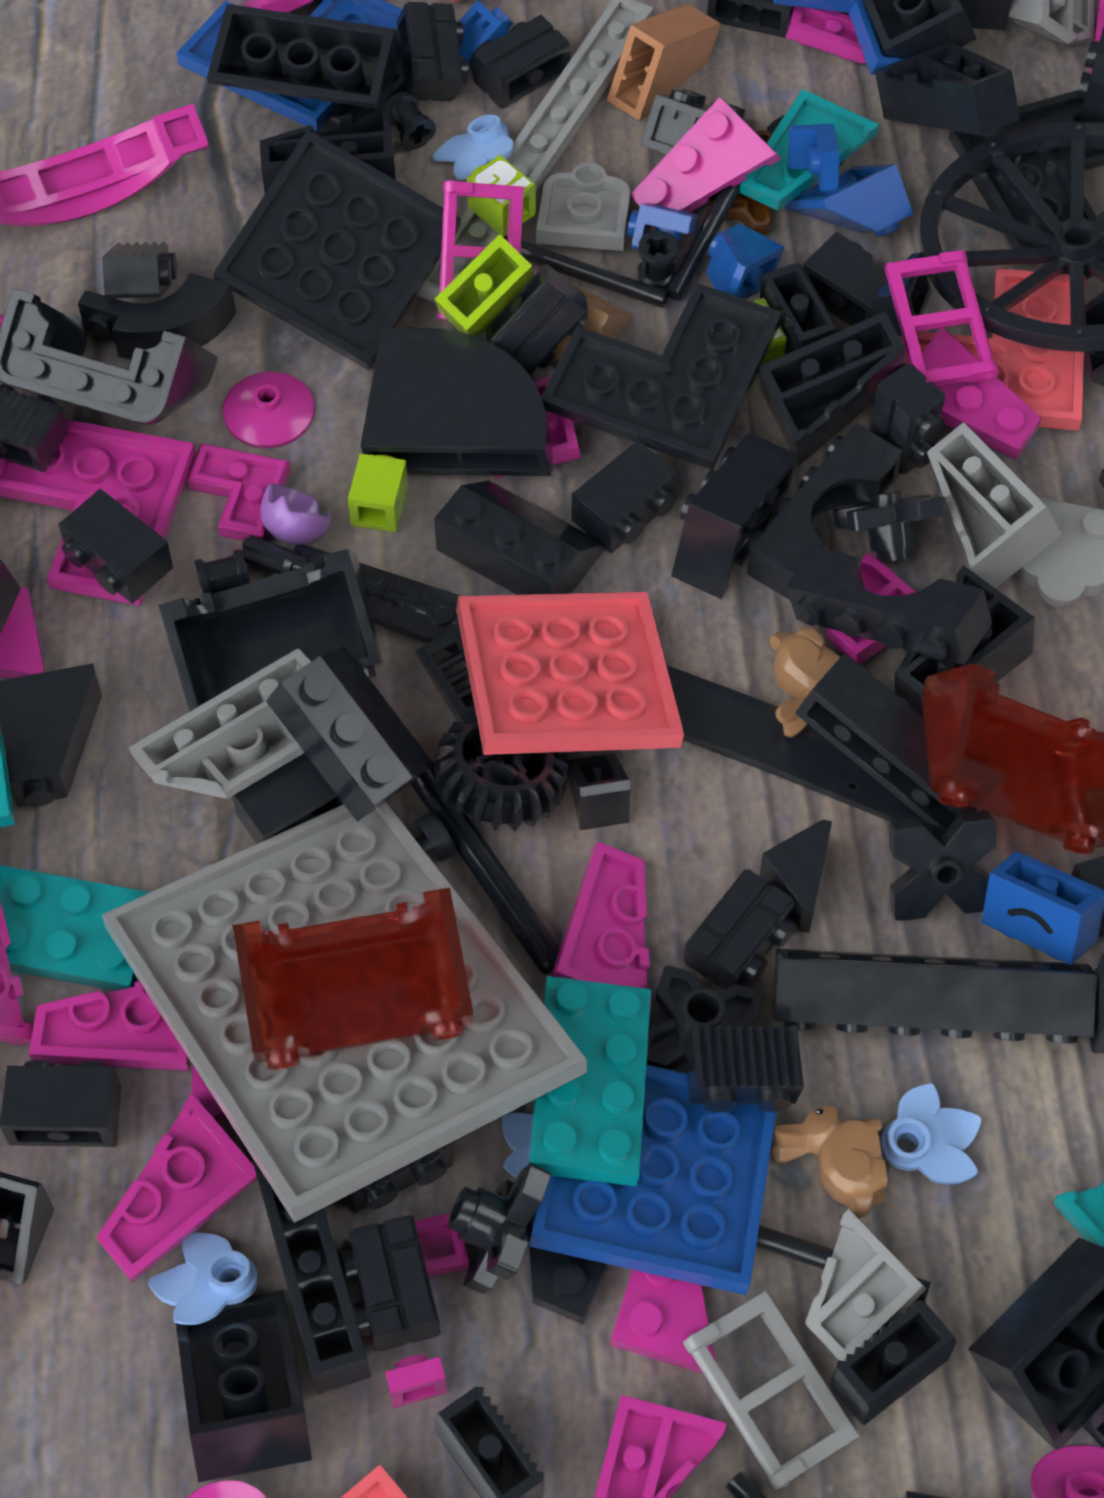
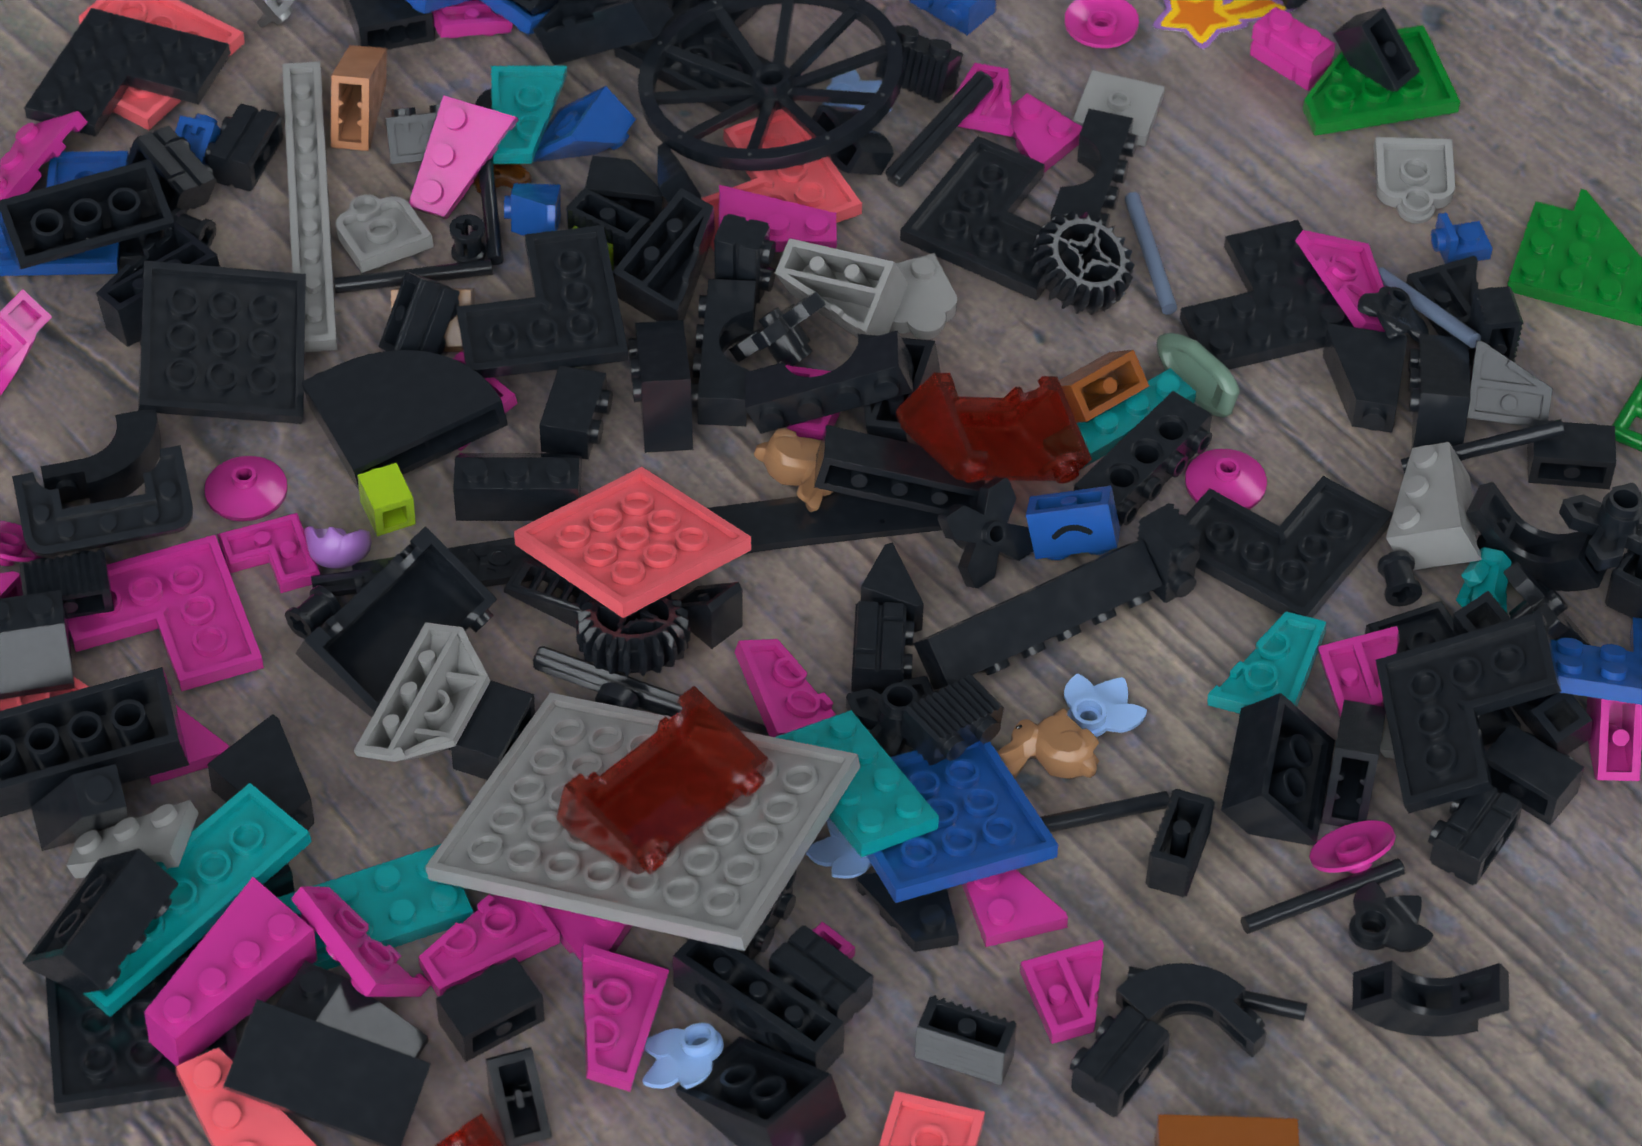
camera: 35 degrees left, 10 degrees down
(115, 546) = (223, 627): black brick -> none
(138, 270) = (71, 432): black brick -> none
(349, 731) = (513, 658): black slope -> none
(416, 1380) = (878, 1032): dark pink plate -> none
(479, 190) = (316, 300): dark pink window -> none
(484, 141) = (260, 225): light blue plate -> none
(484, 287) = (366, 312): lime brick -> none
(496, 211) = (318, 246): lime brick -> none
(498, 1225) = (867, 903): black plant -> none
(664, 218) = (455, 207): bracket -> none
(802, 1368) = (1123, 885): light grey window -> none
(815, 149) = (543, 101): blue bracket -> none
(859, 1290) = (1126, 815): light grey wing -> none
(971, 314) = (667, 158): dark pink window -> none

